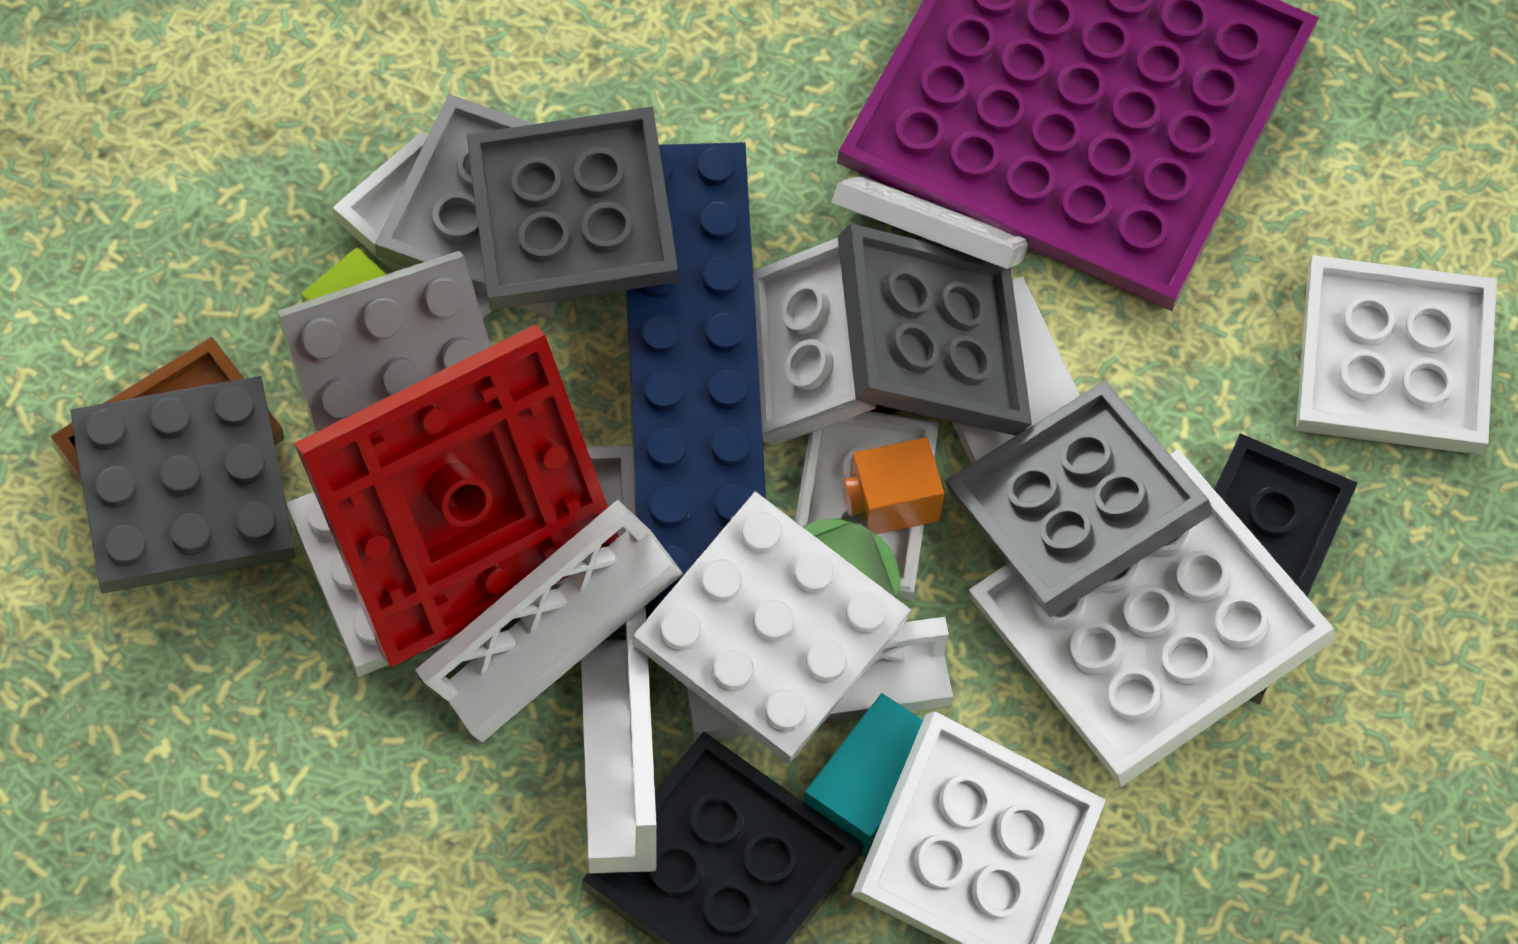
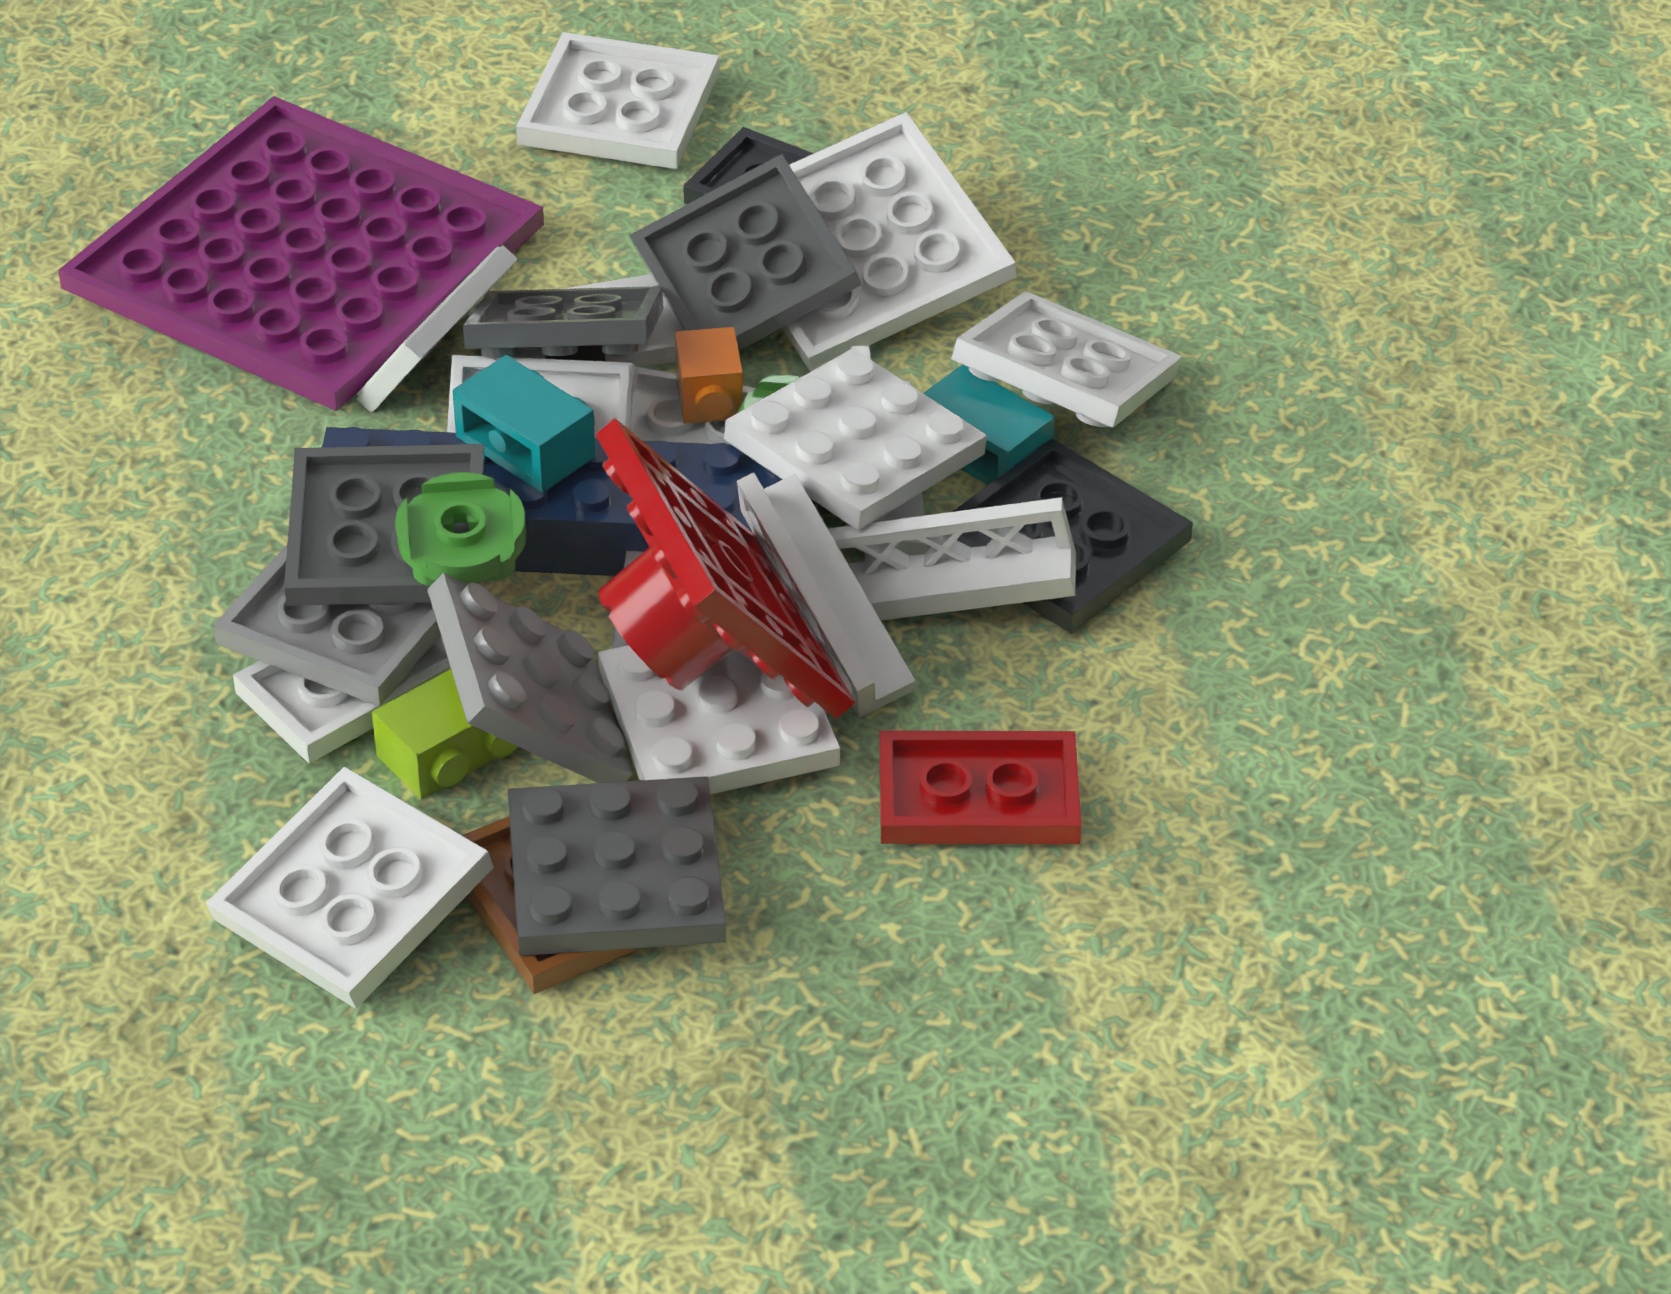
camera: 80 degrees left, 20 degrees down
(148, 269) = (350, 886): none -> white plate
(335, 809) = (979, 787): none -> red plate
(542, 297) = (475, 556): none -> bright green plate
(726, 306) = (524, 423): none -> teal brick

